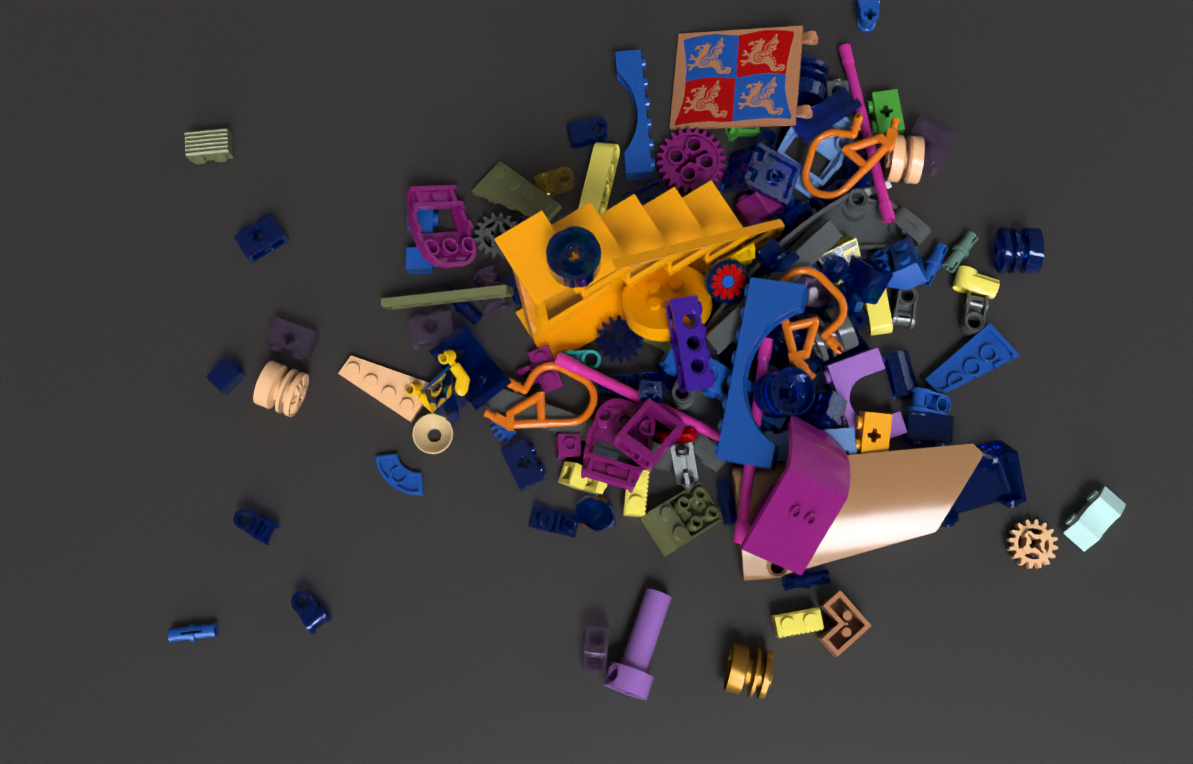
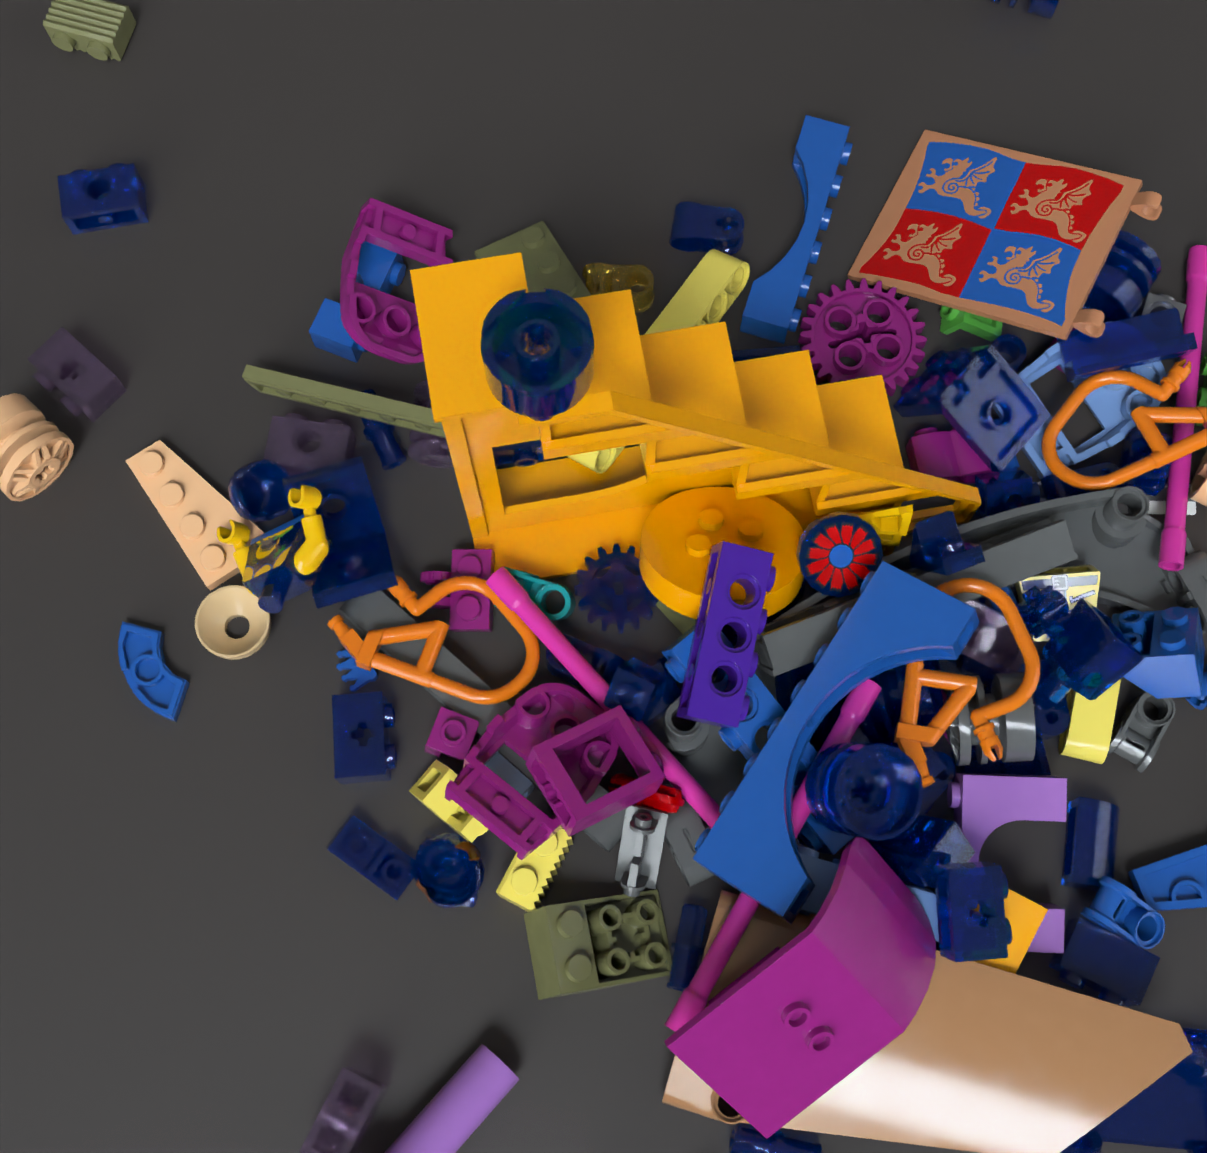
camera: 20 degrees right, 5 degrees down
(417, 361) = (258, 491): none -> clear blue hair
(848, 421) = (959, 890): none -> clear blue brick

